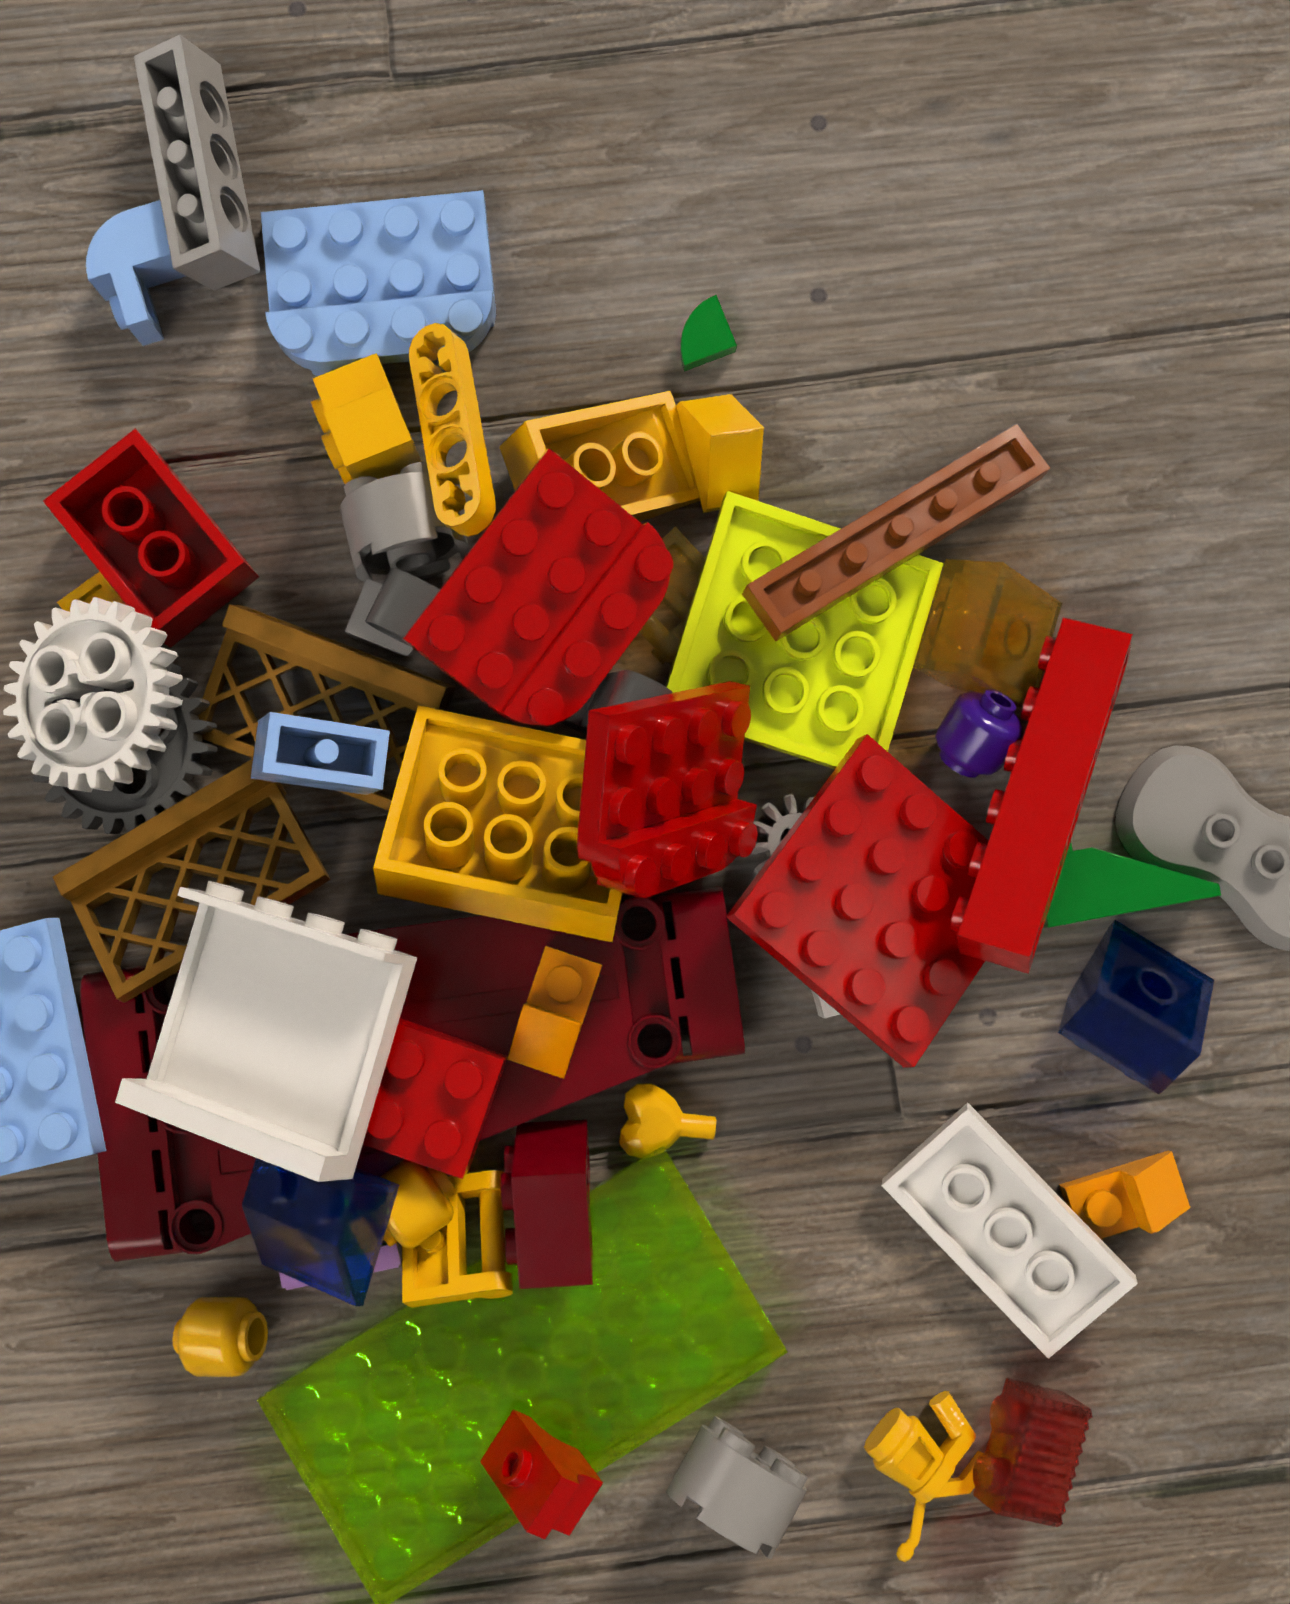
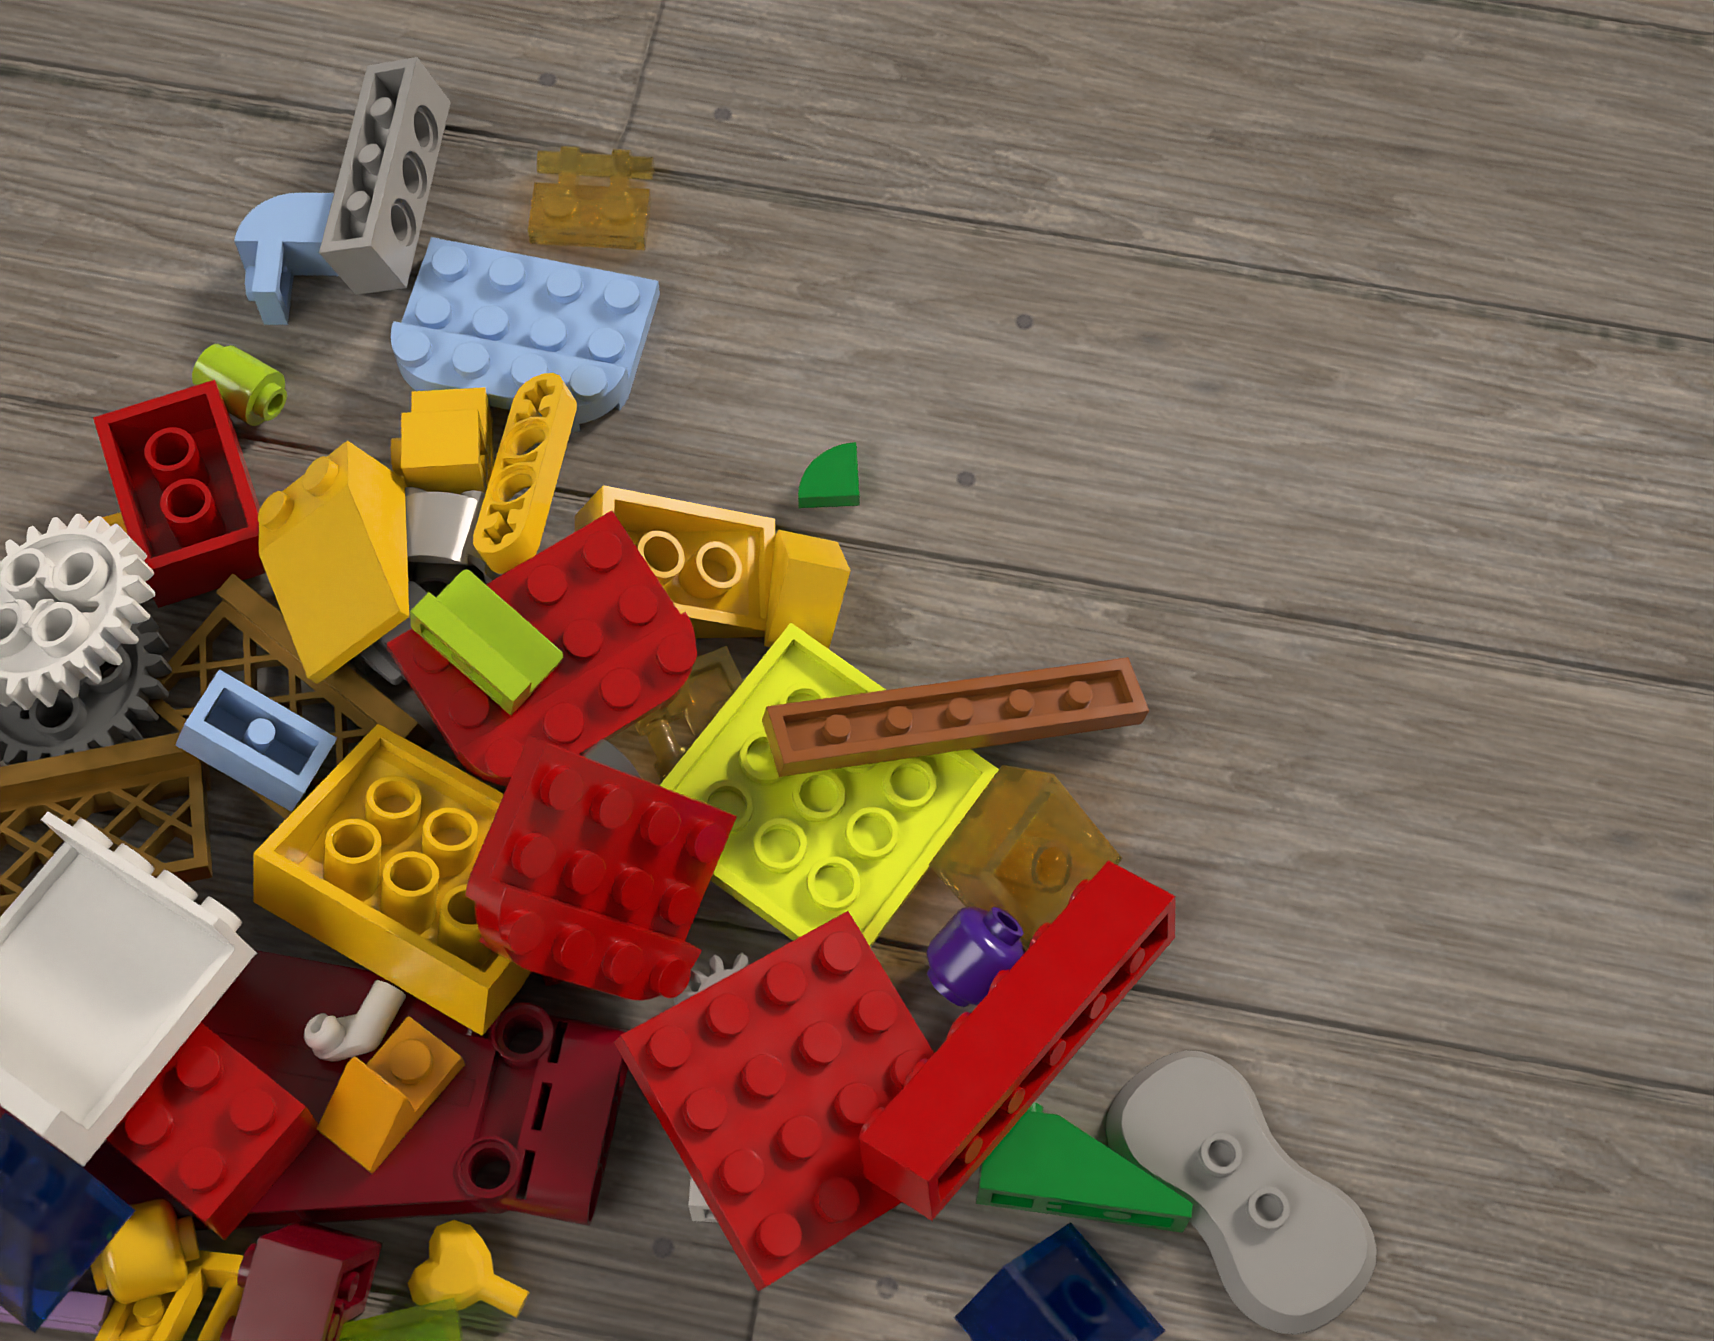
camera: 20 degrees right, 20 degrees down
(157, 414) = (246, 384): none -> lime brick
(323, 567) = (337, 557): none -> yellow slope
(391, 140) = (591, 214): none -> clear yellow plate
(492, 609) = (486, 640): none -> lime panel
(506, 972) = (357, 1033): none -> white arm

